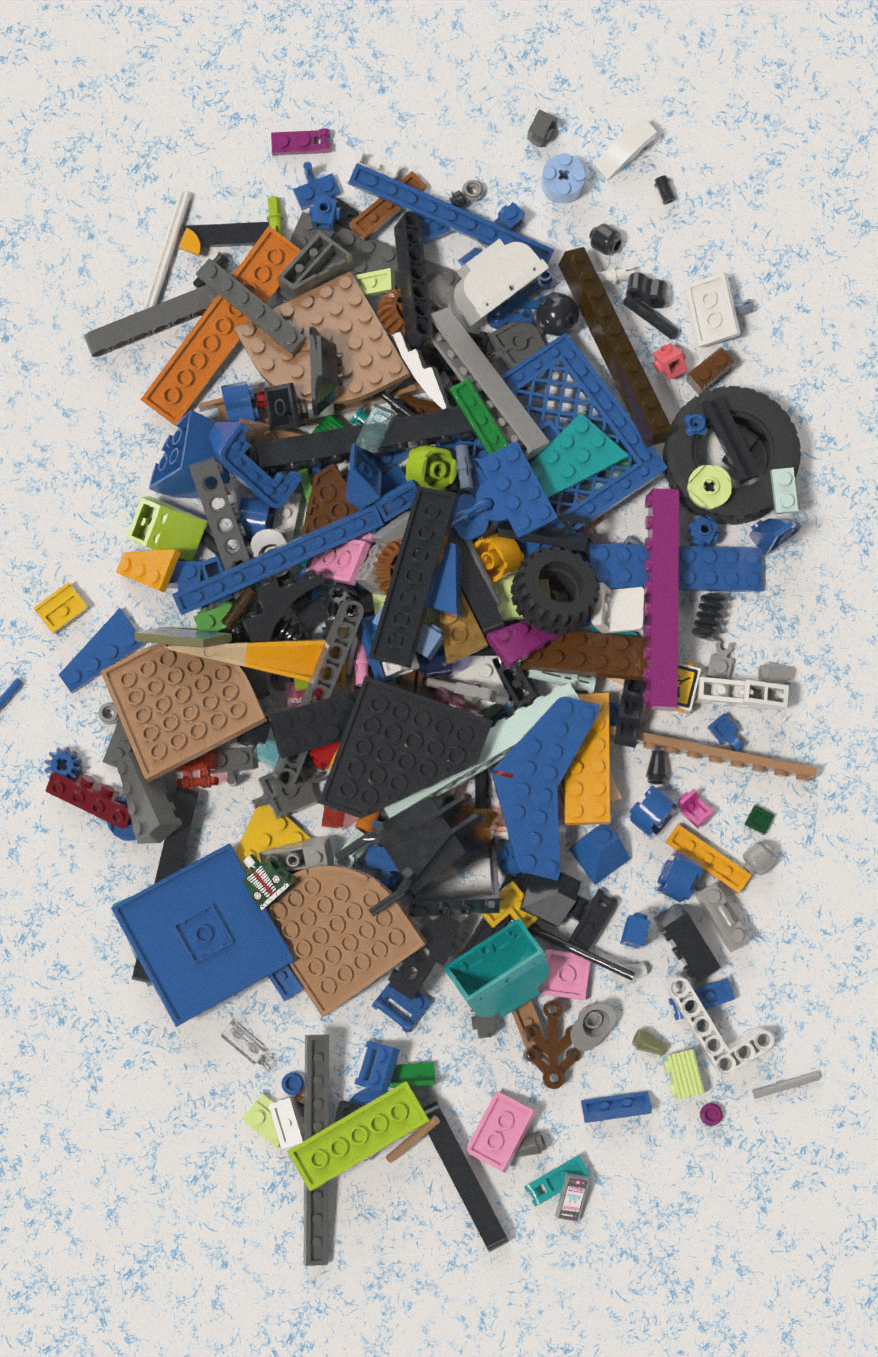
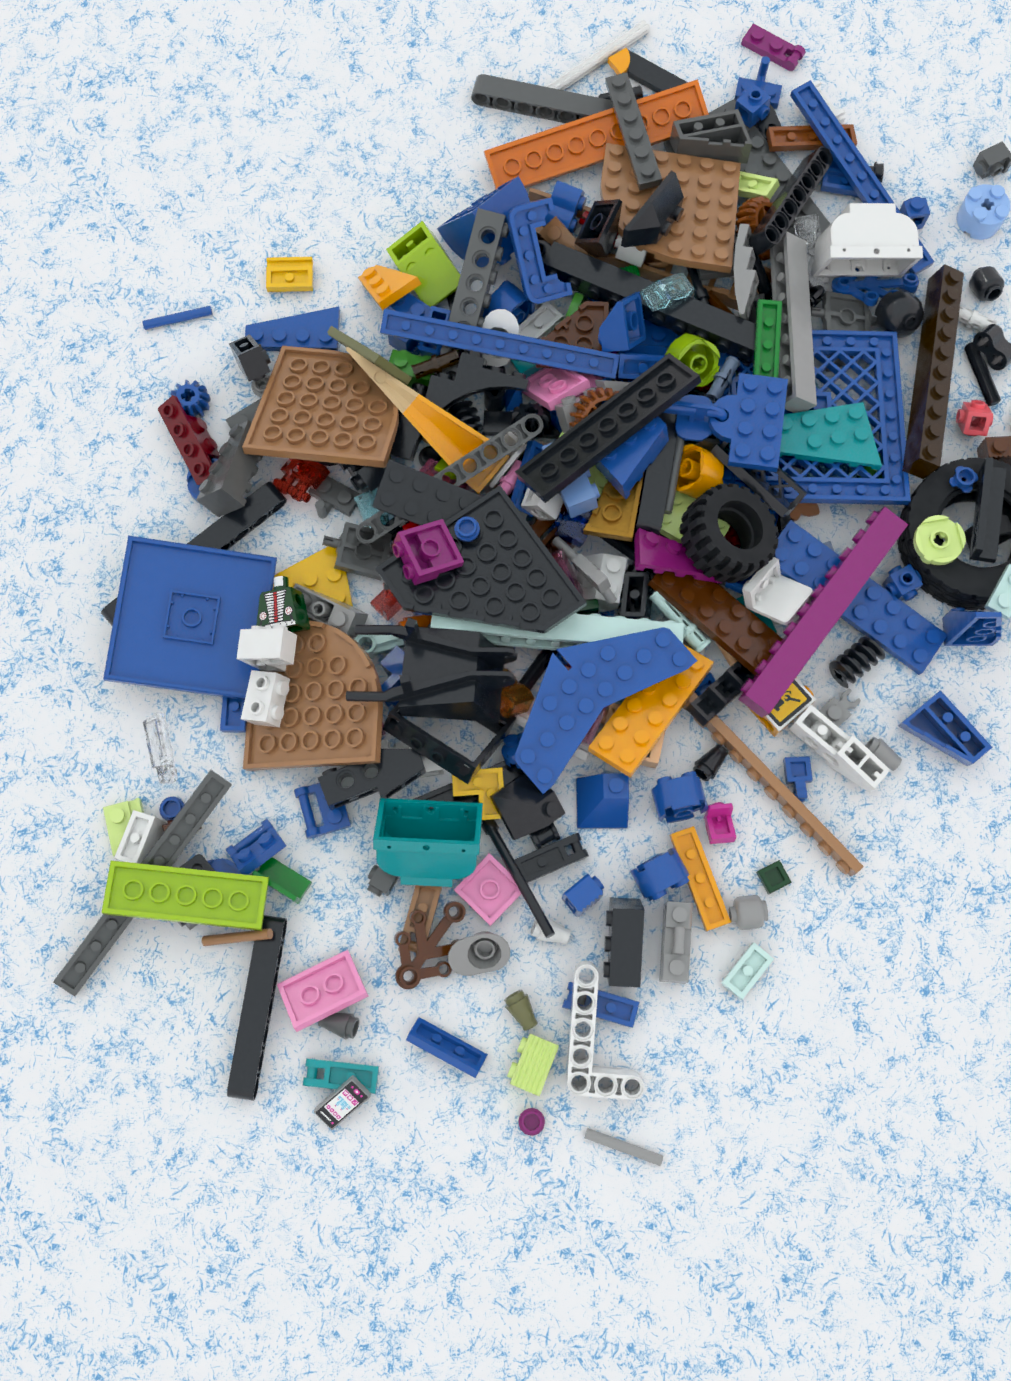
camera: 35 degrees right, 5 degrees down
(88, 700) = (250, 358): none -> black brick
(274, 214) = (710, 84): lime axle -> none
(281, 916) = (267, 648): none -> white brick
(304, 954) = (265, 698): none -> white brick
(350, 765) = (426, 551): none -> magenta plate
(366, 727) = (467, 529): none -> blue plate
(472, 184) = (897, 169): light grey plate -> none
(786, 901) = (747, 971): none -> light aqua plate
(806, 623) = (947, 730): none -> blue wedge

